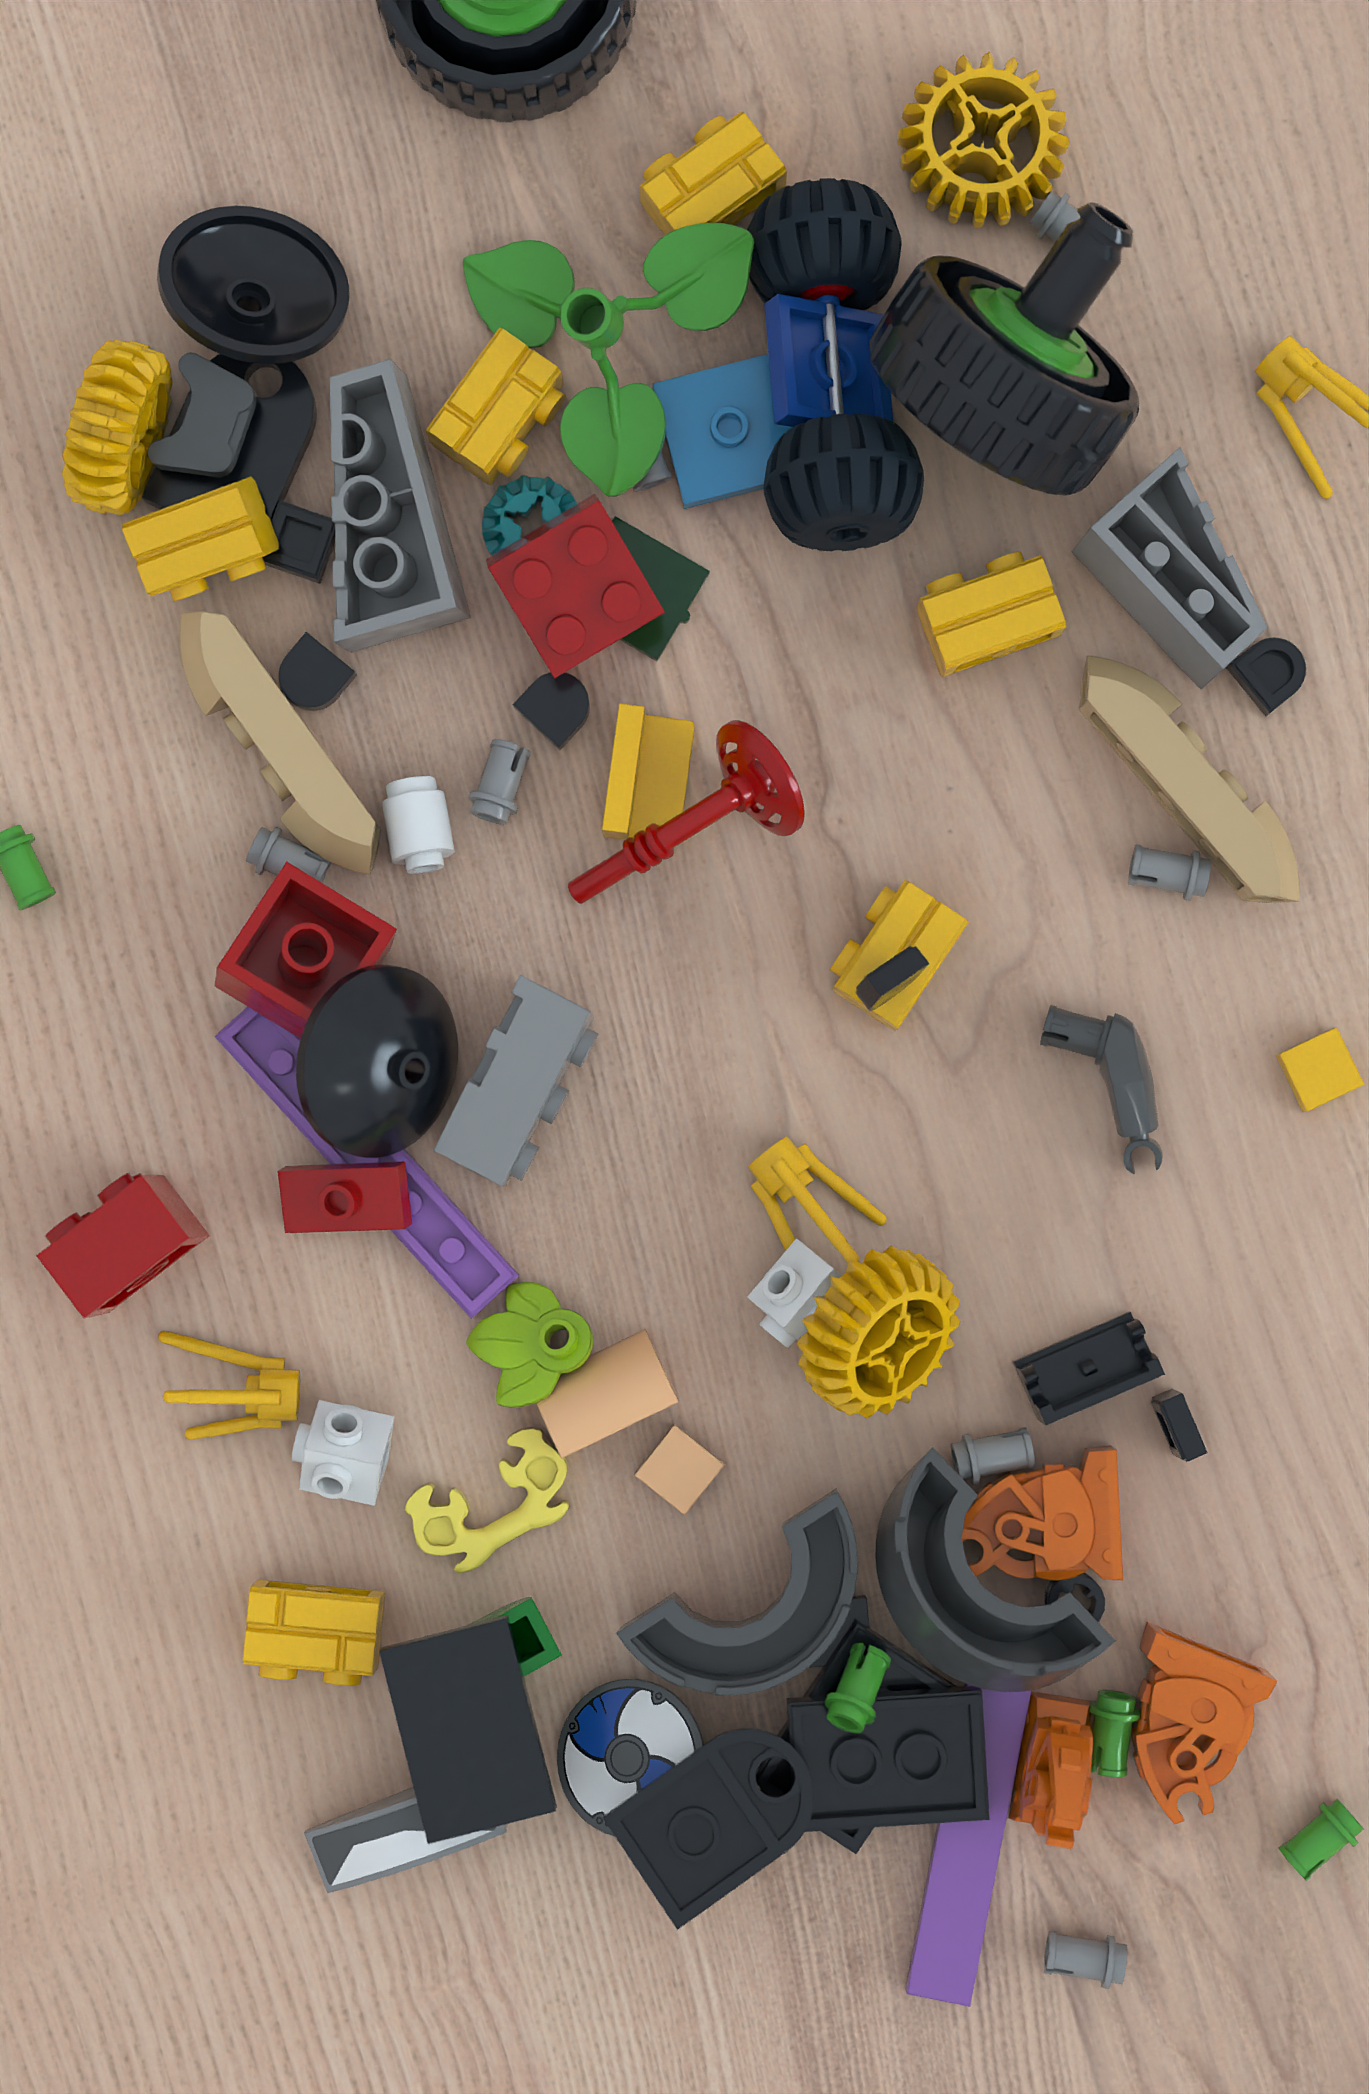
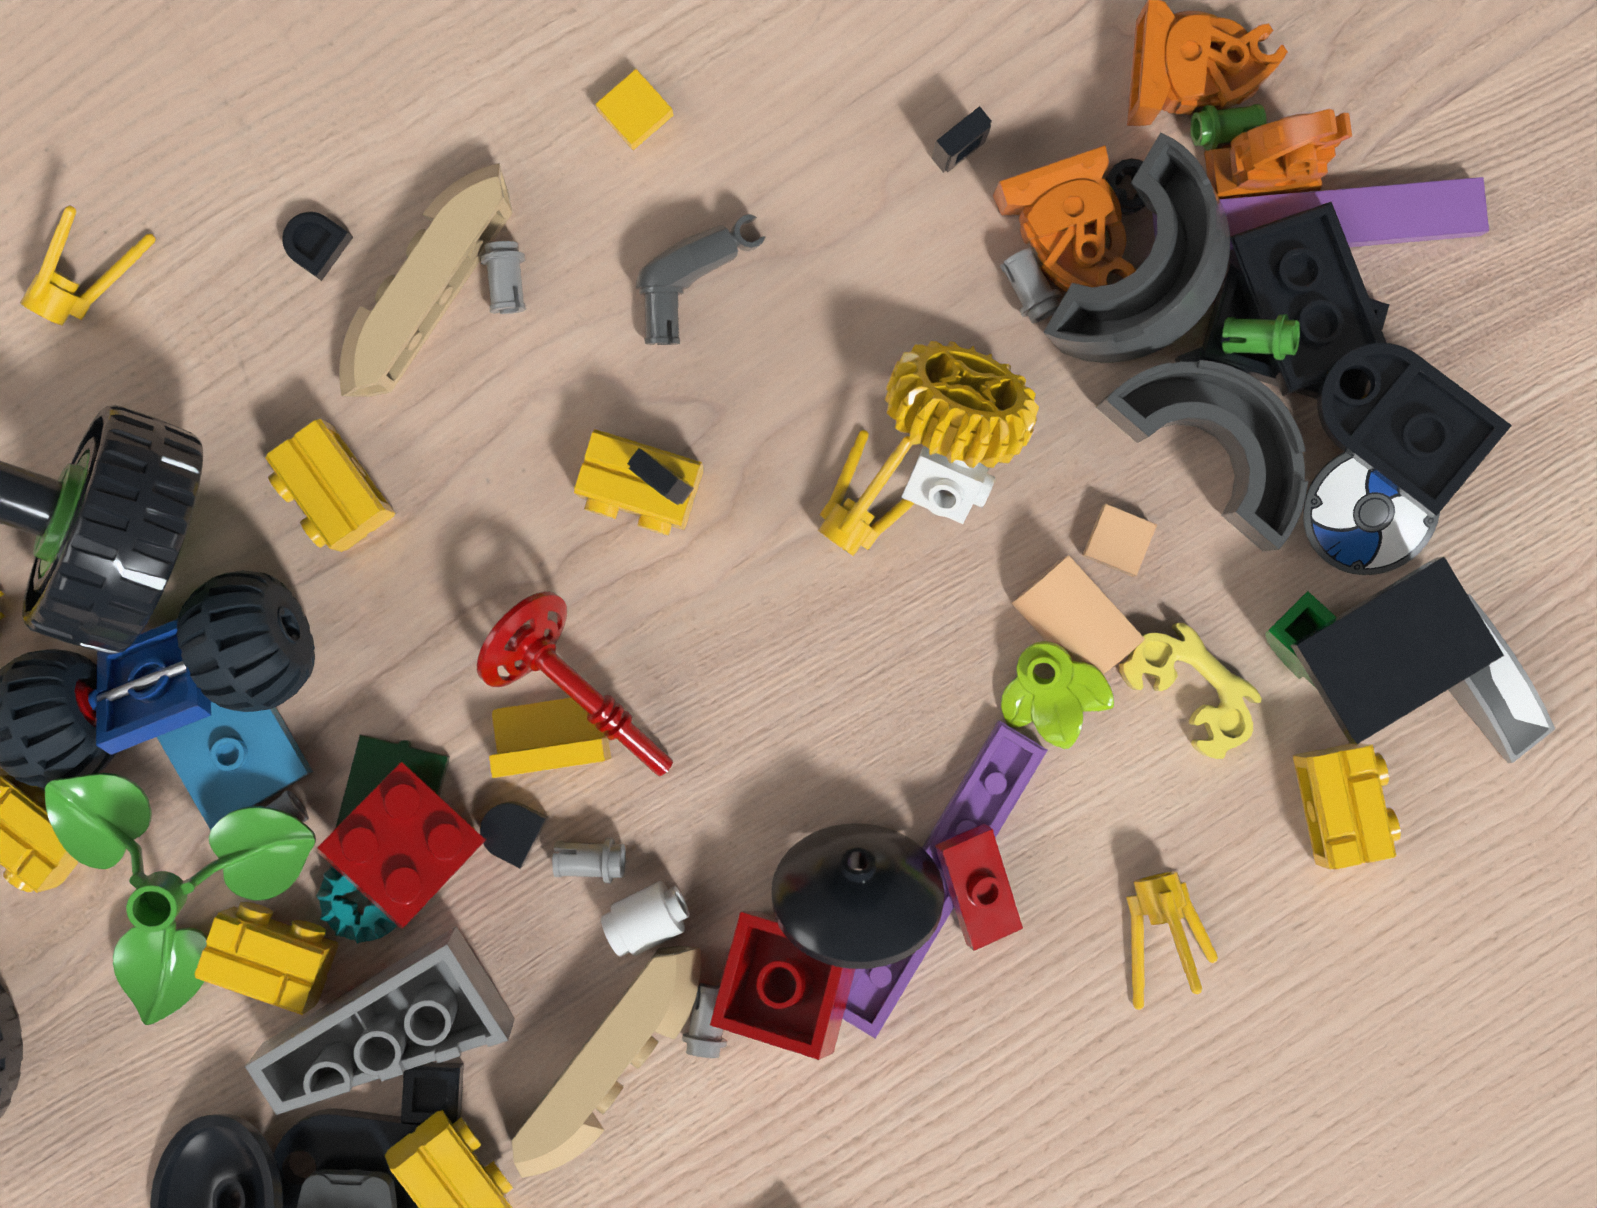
camera: 110 degrees left, 0 degrees up
(121, 1244) = (1079, 1068): red brick -> none
(313, 675) = (543, 1046): black tile -> none
(344, 1452) = (1193, 824): white brick -> none
(517, 1083) = (841, 769): light grey wedge -> none
(1086, 1958) = (1415, 95): light grey pin -> none
(1087, 1368) = (937, 227): black hinge -> none
(1173, 573) = (250, 341): light grey wedge -> none

